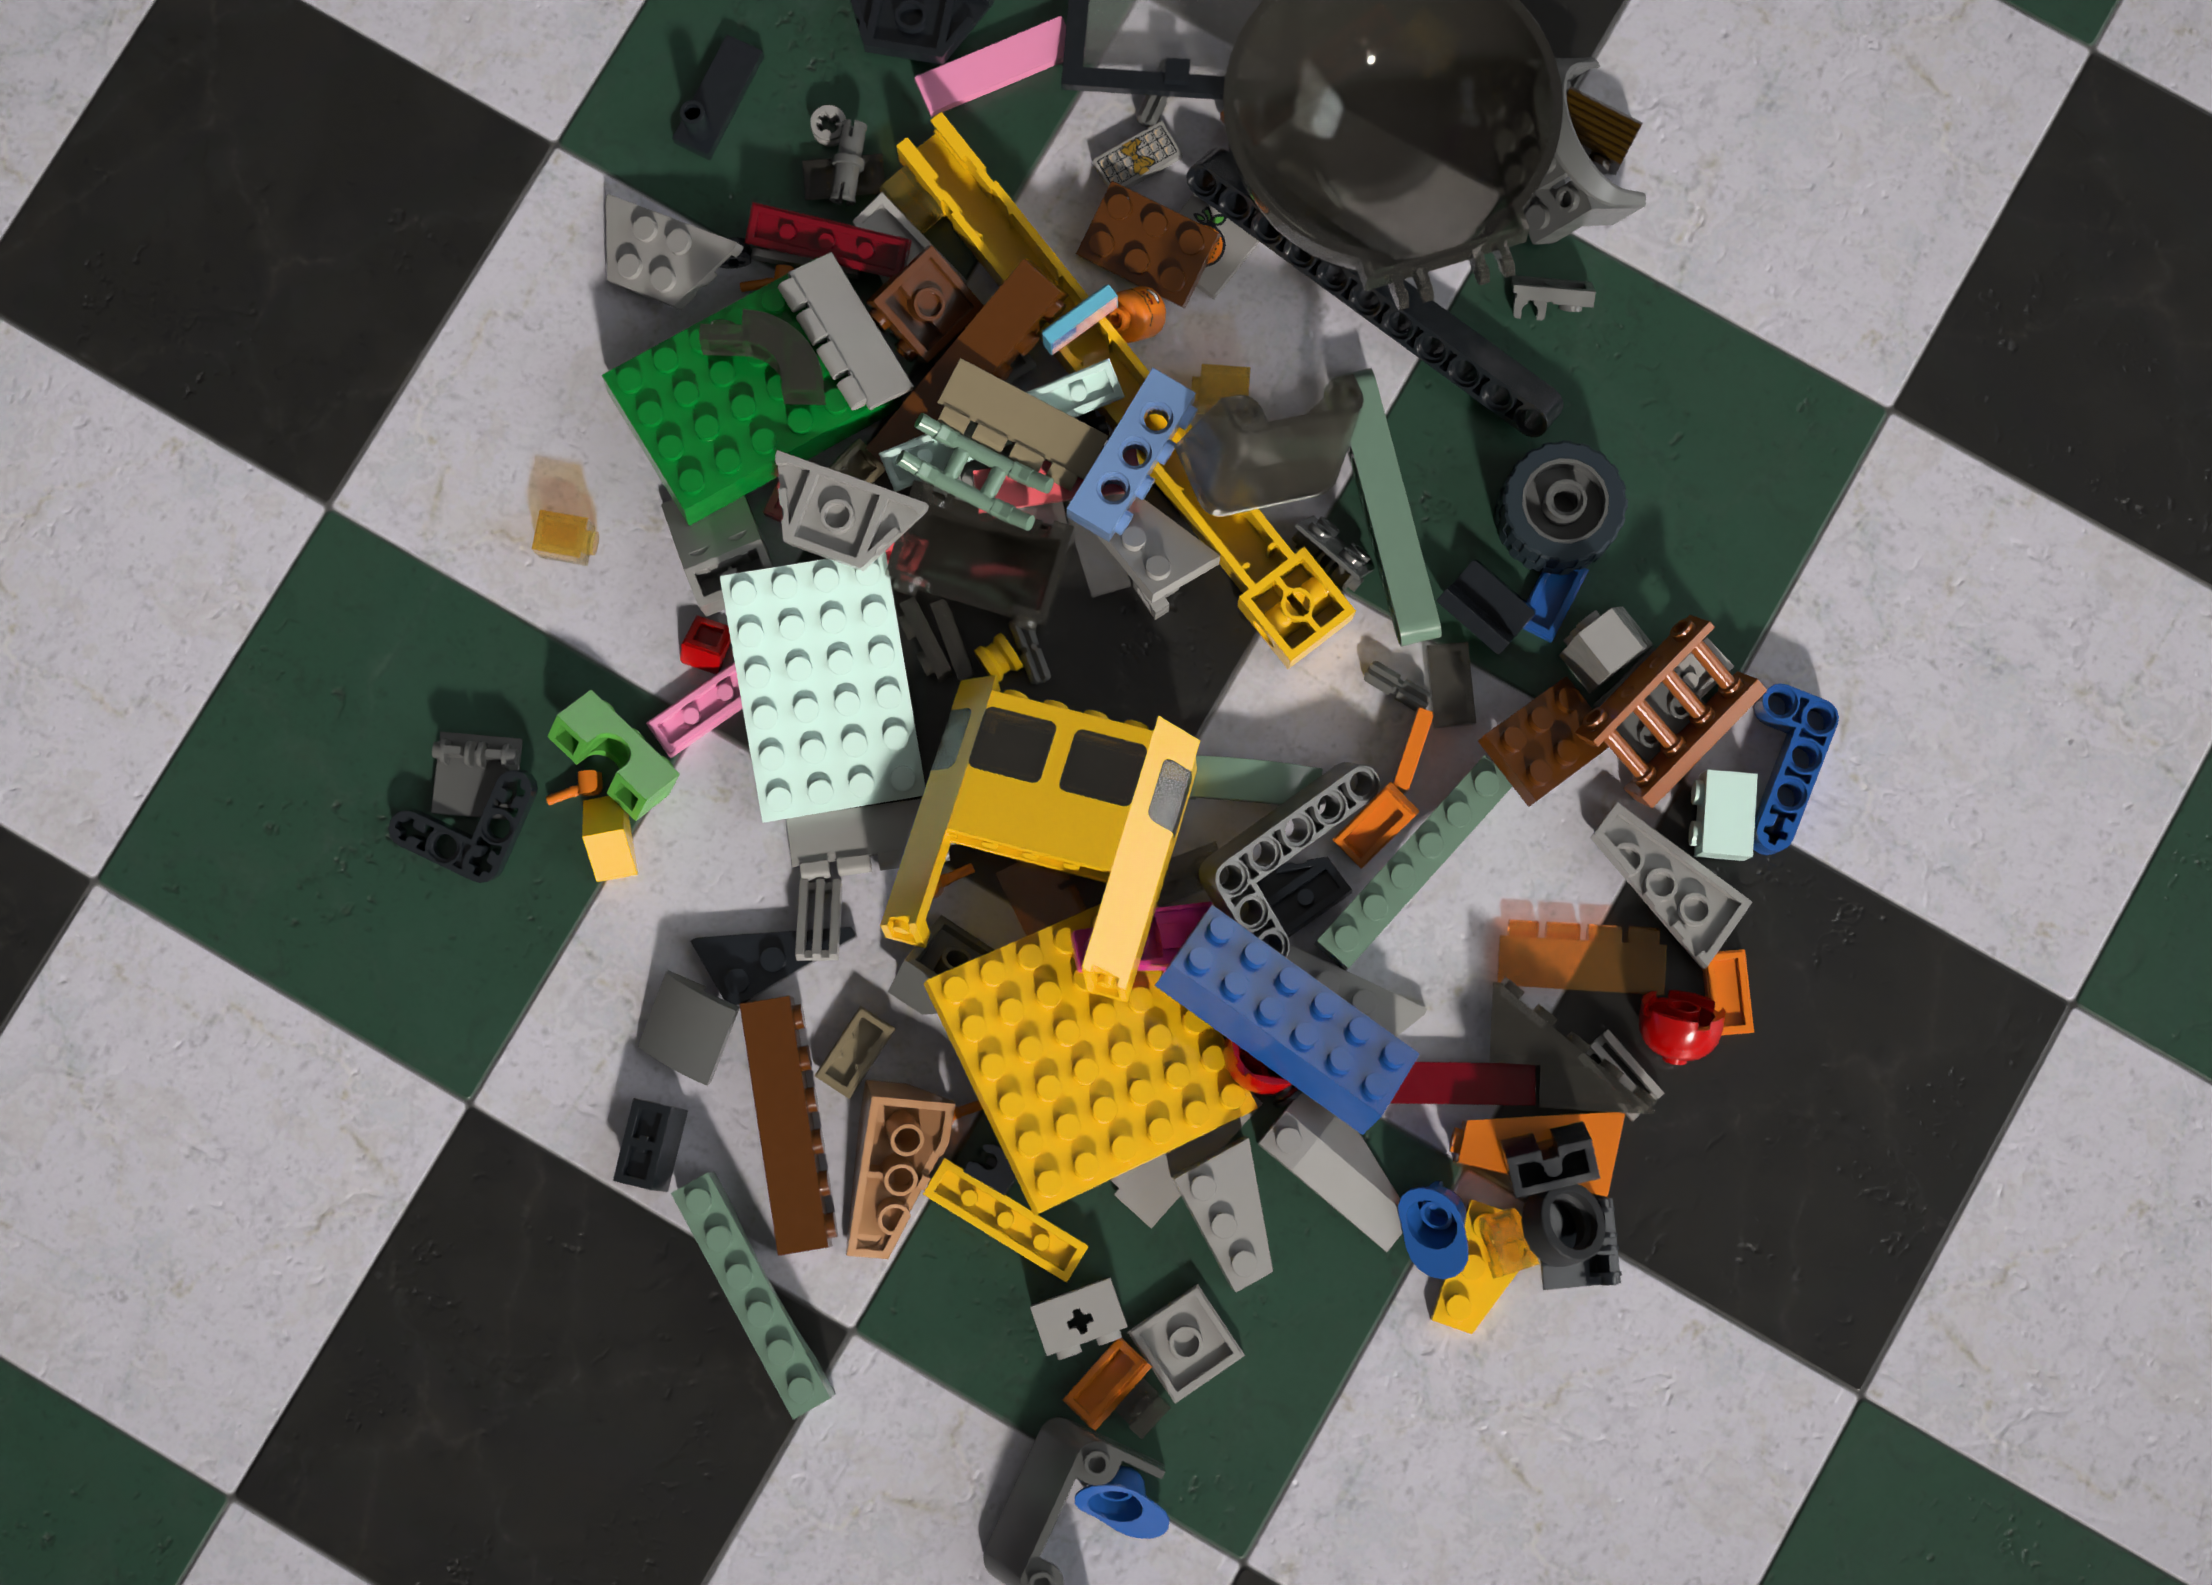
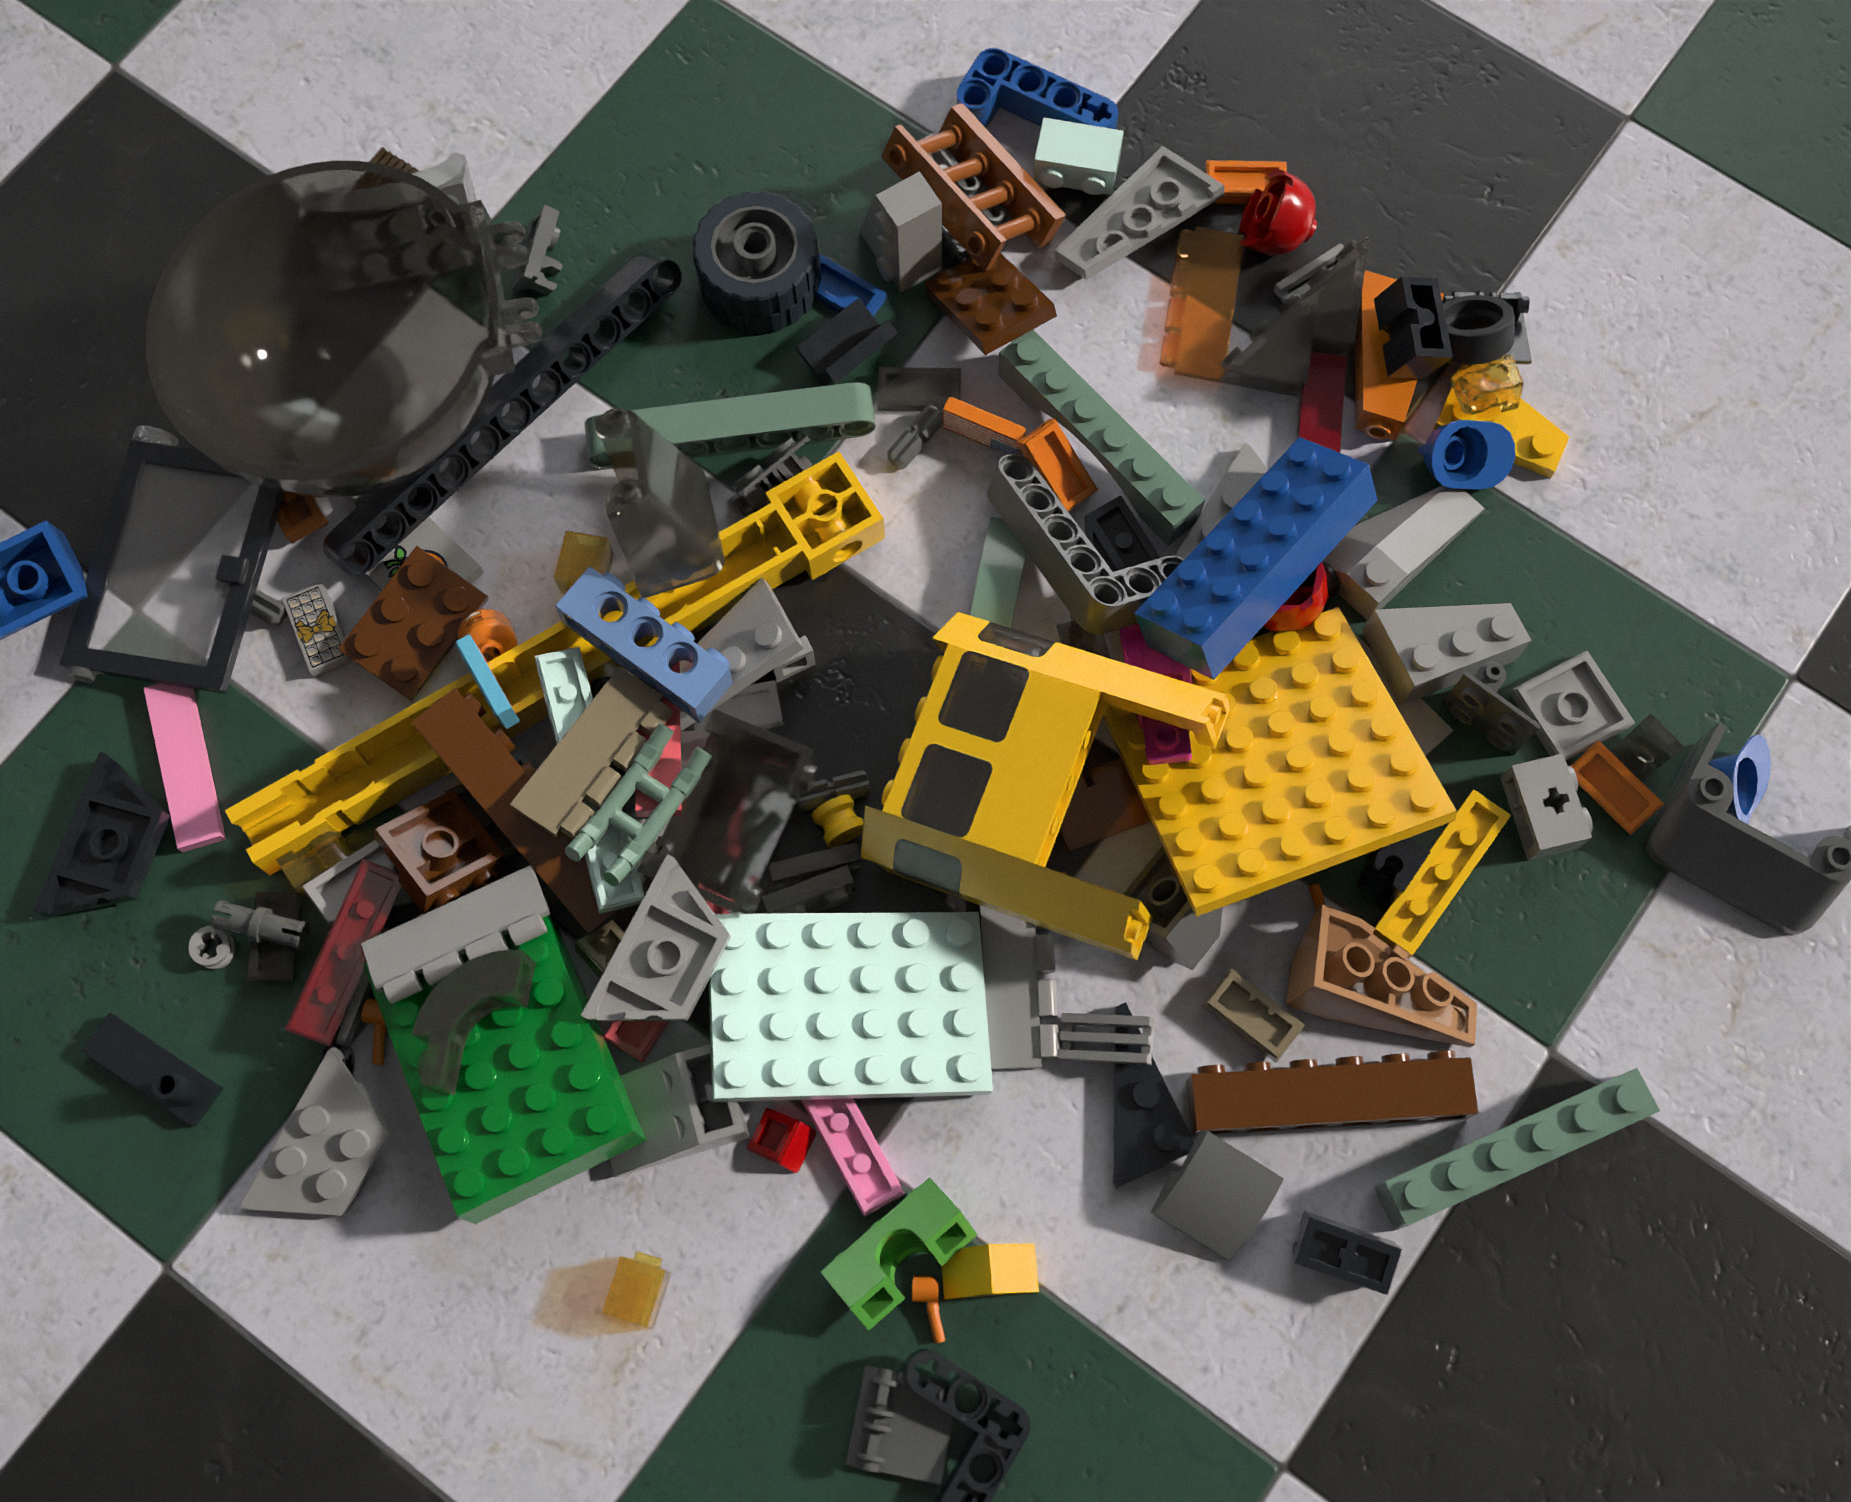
camera: 85 degrees left, 10 degrees down
(1176, 1243) = (1477, 703): none -> dark grey hinge

